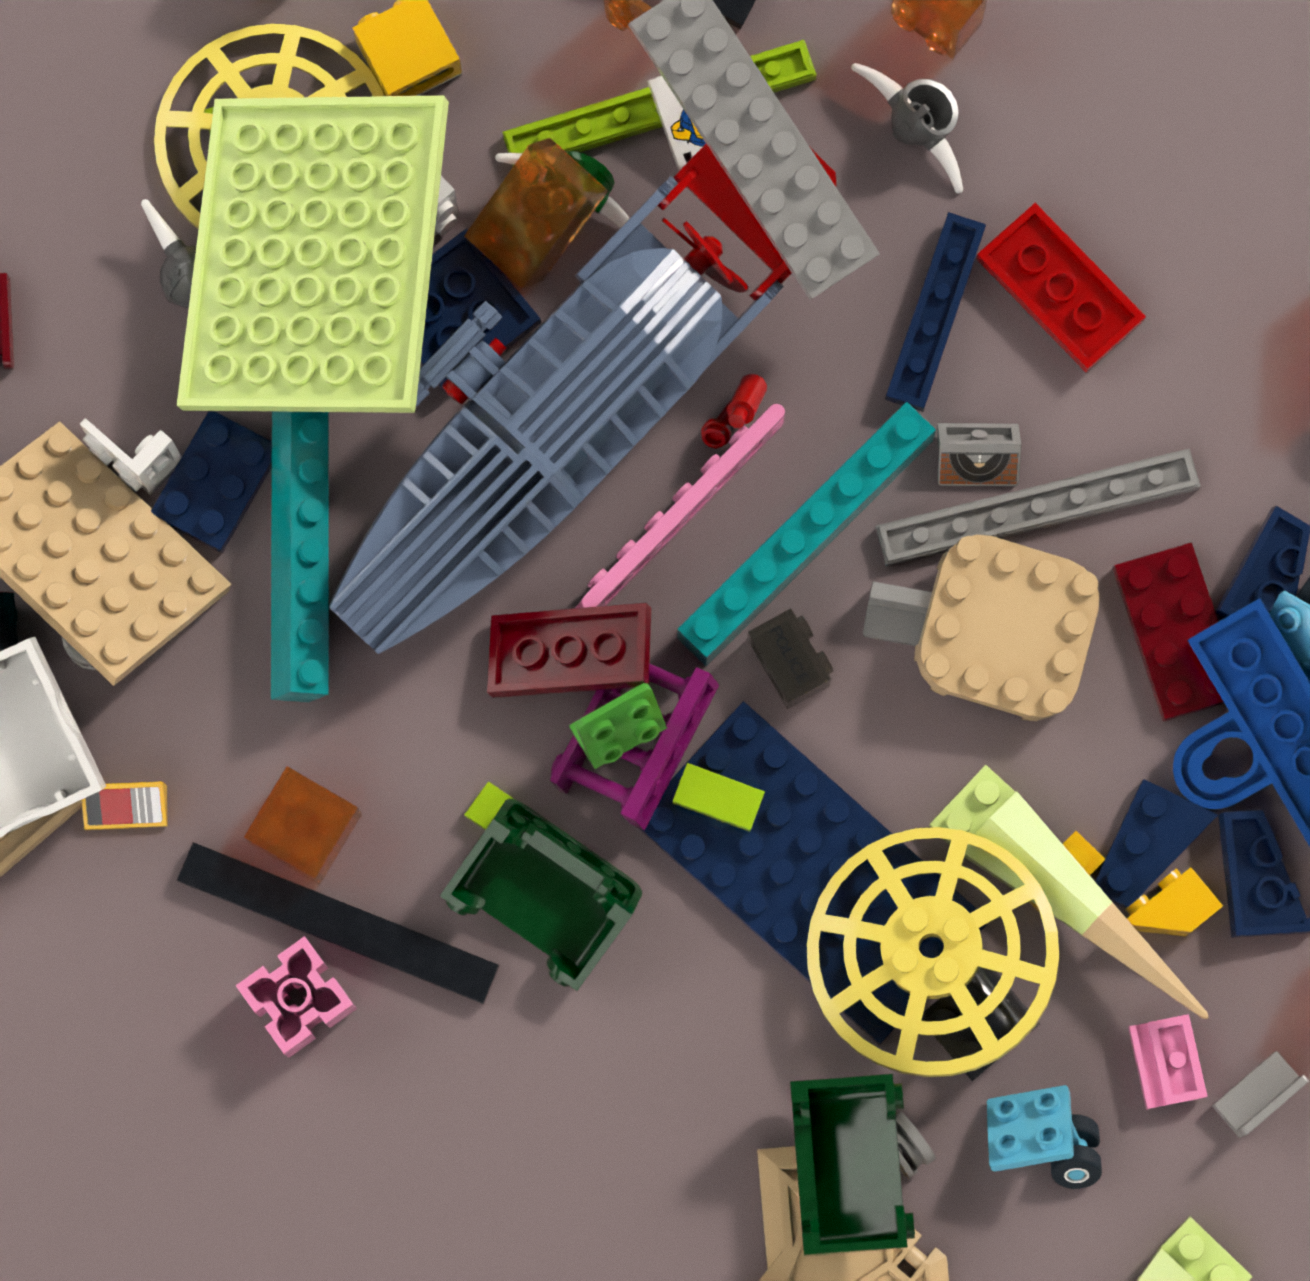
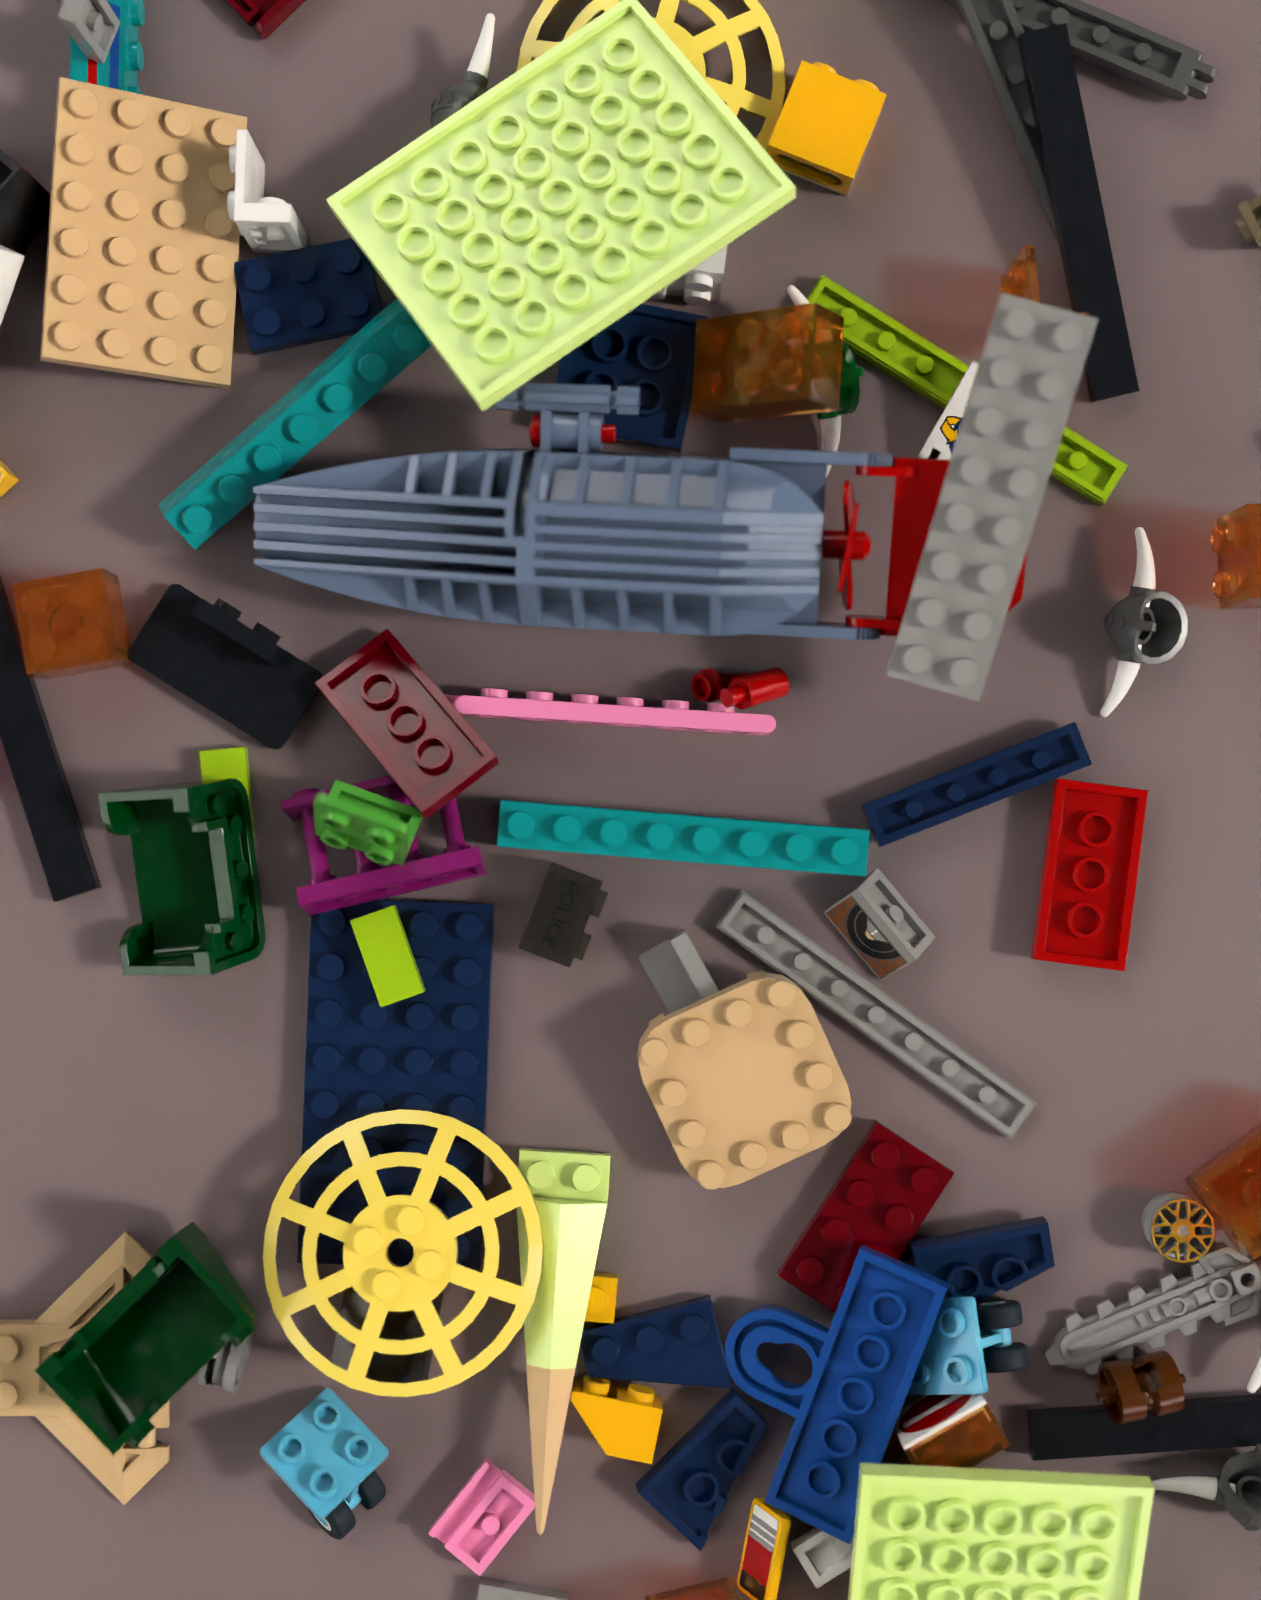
camera: 45 degrees right, 10 degrees up
(420, 745) = (226, 665): none -> black bracket

